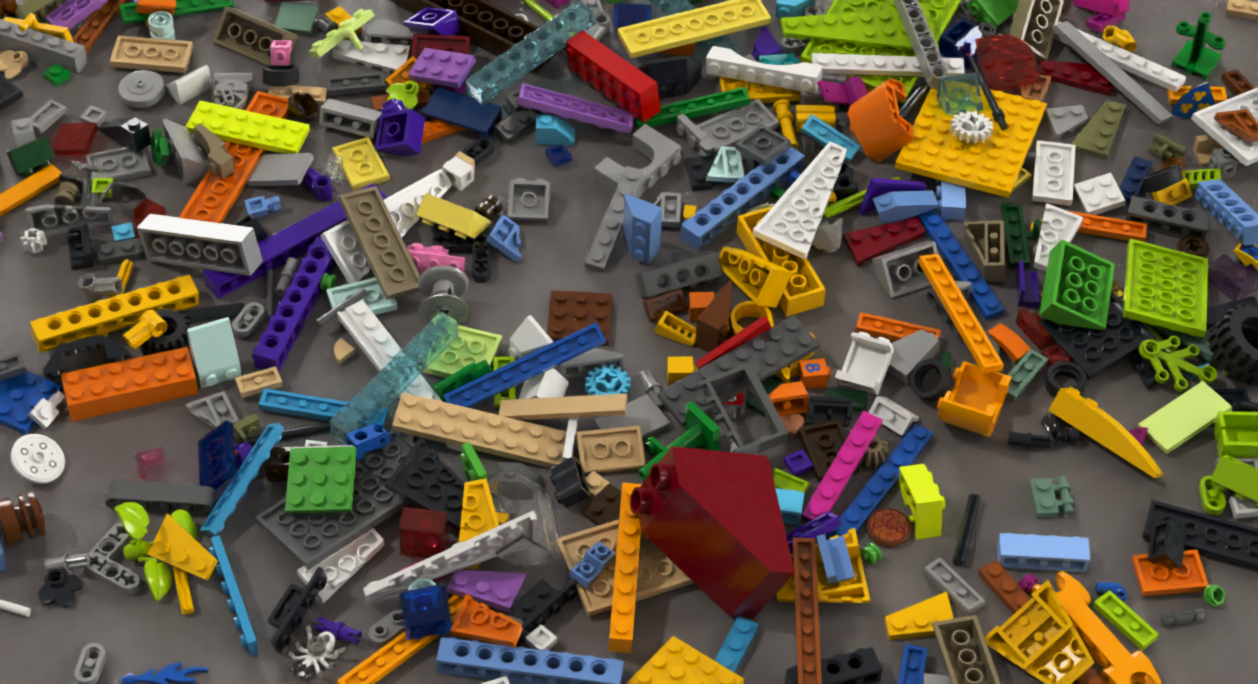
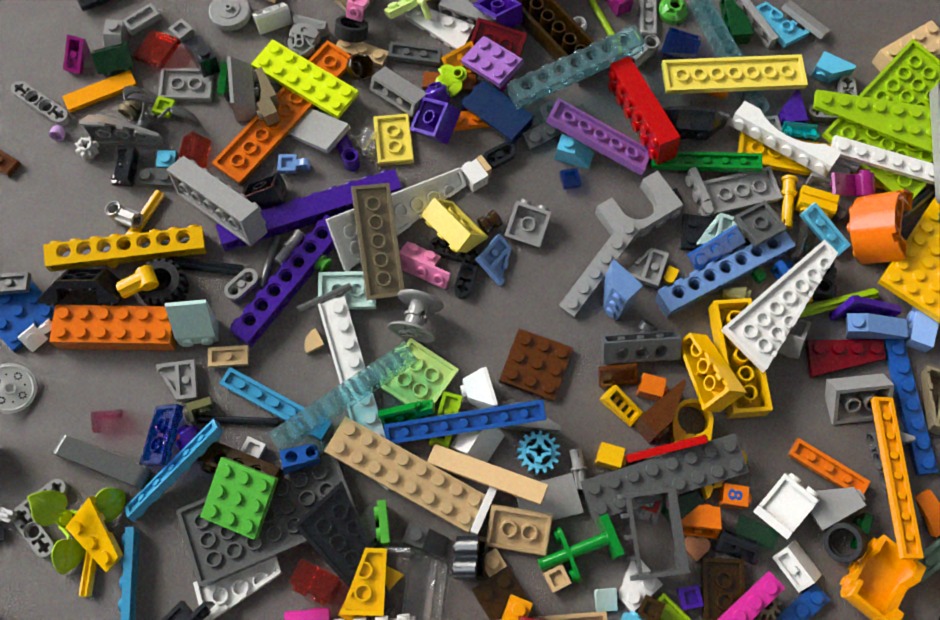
camera: 15 degrees right, 20 degrees up
(727, 175) = (716, 247): none -> blue plate

